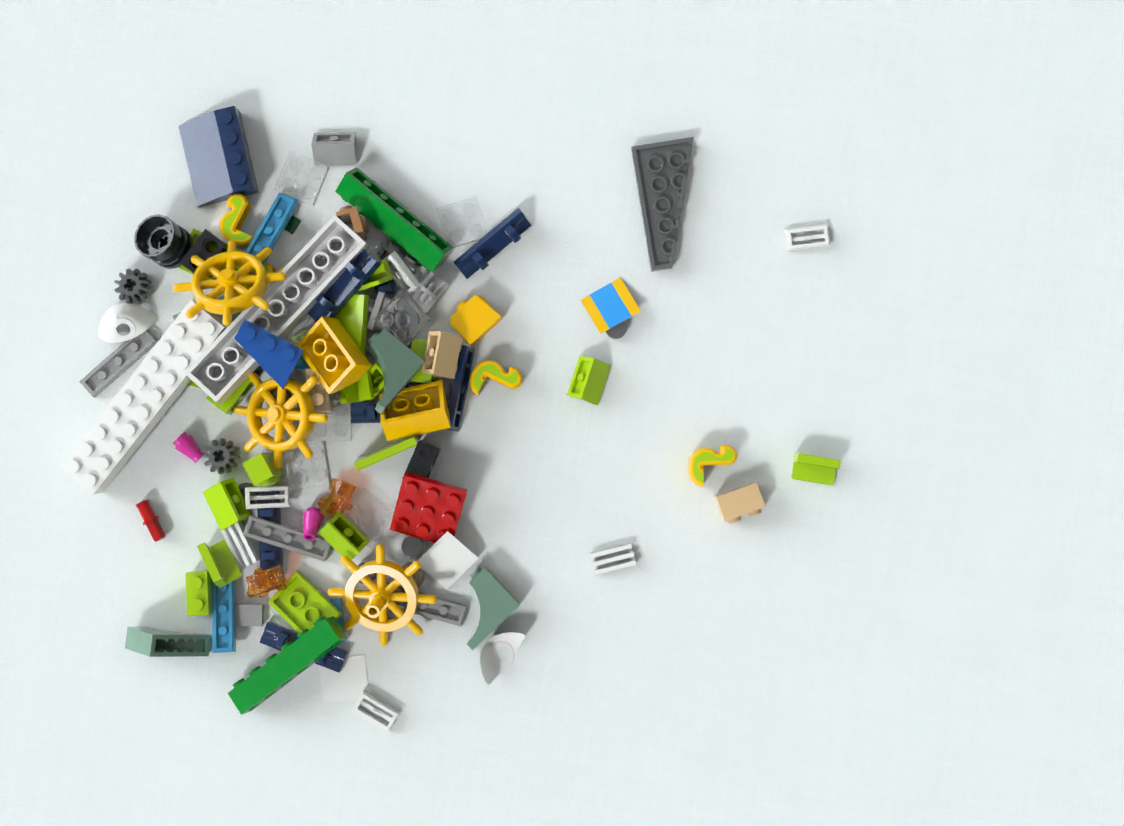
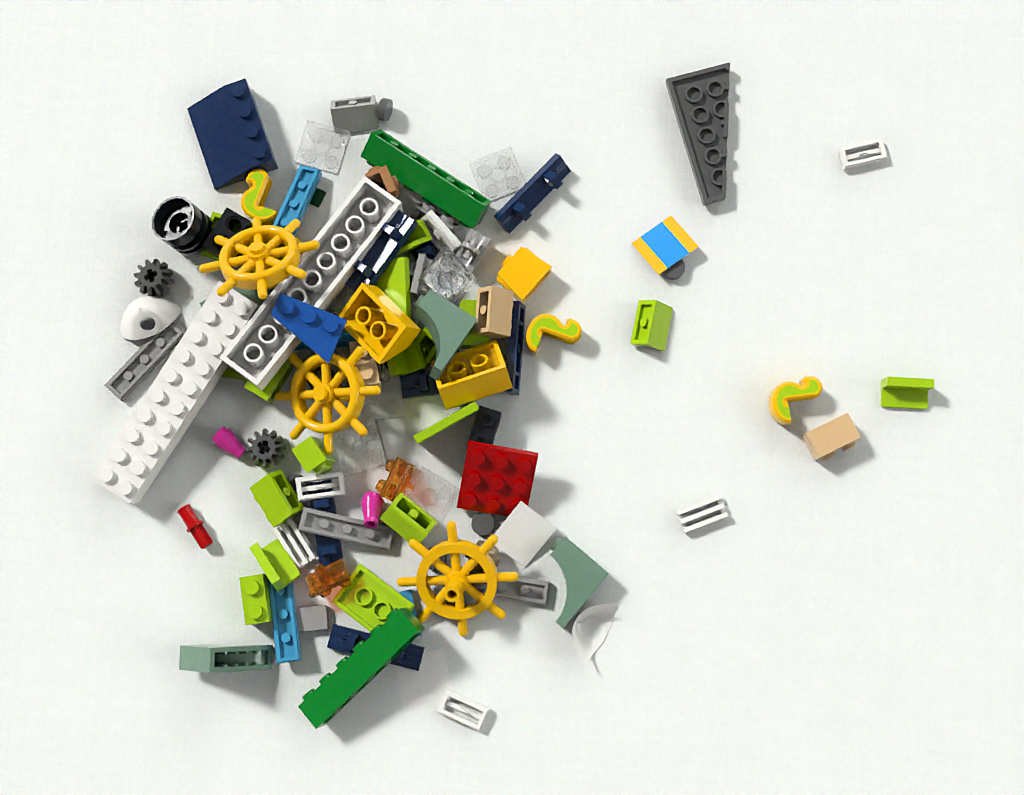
camera: 10 degrees left, 5 degrees down
(363, 147) = (384, 109): none -> dark grey tile

